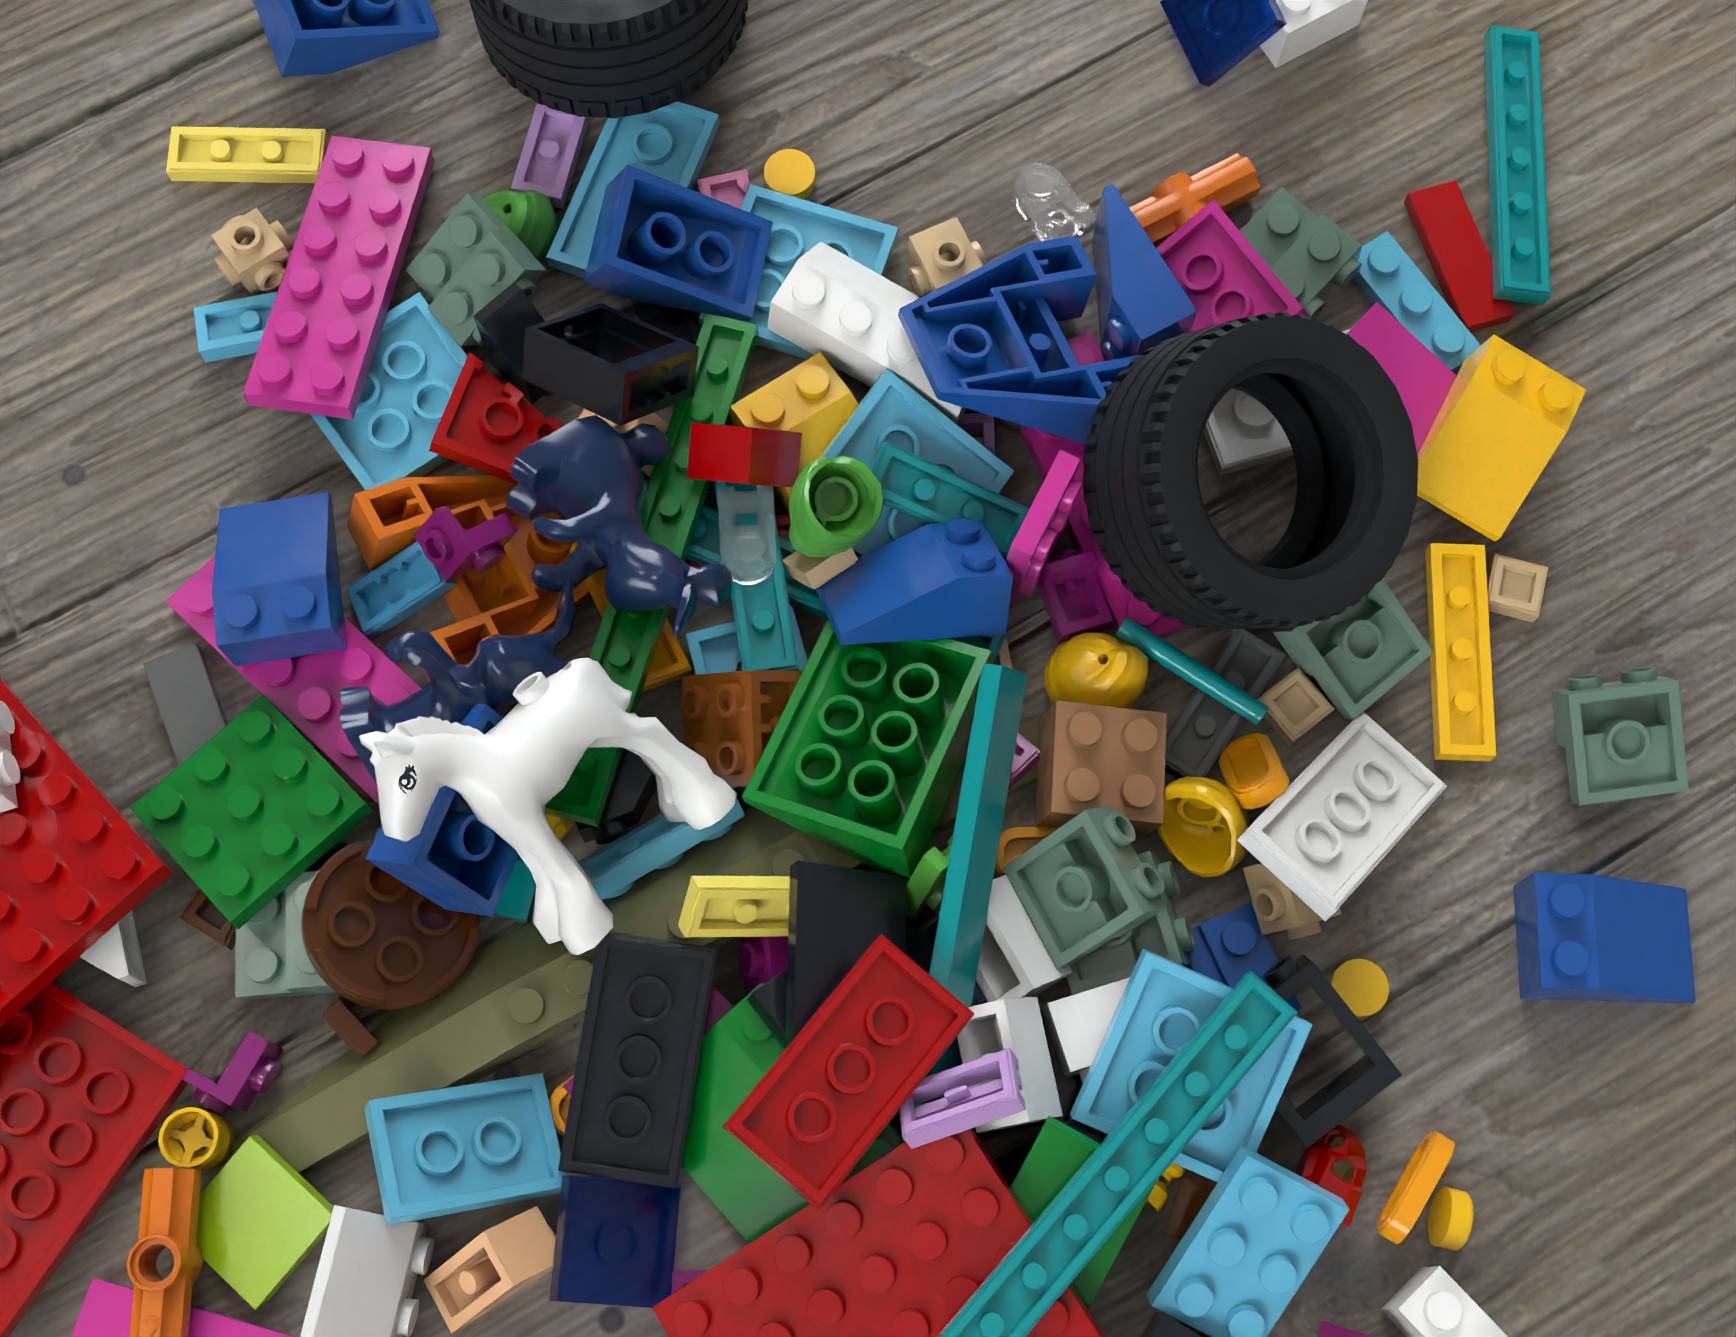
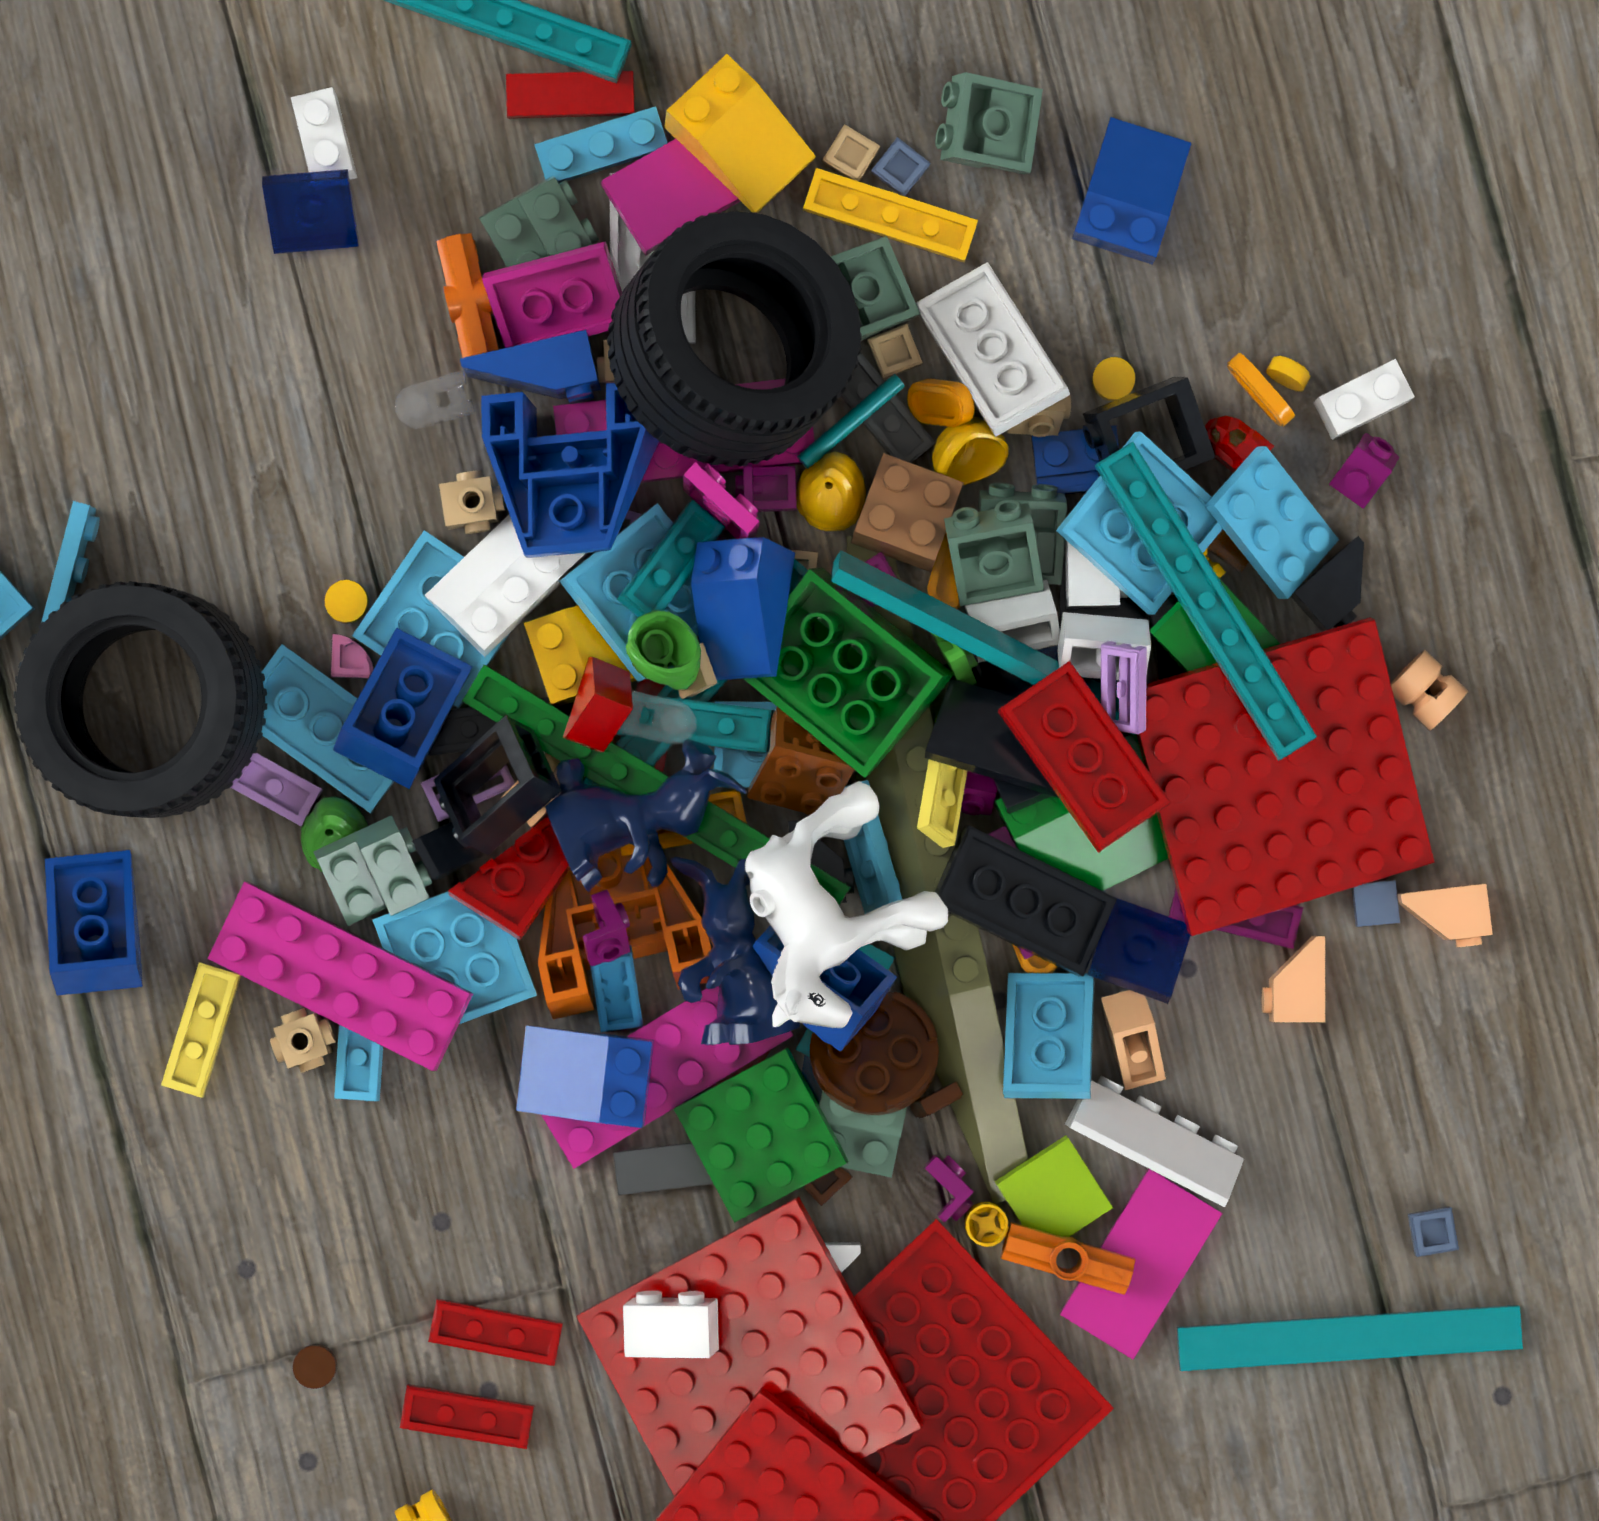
camera: 75 degrees left, 15 degrees up
(1521, 650) = (900, 167): none -> sand blue tile

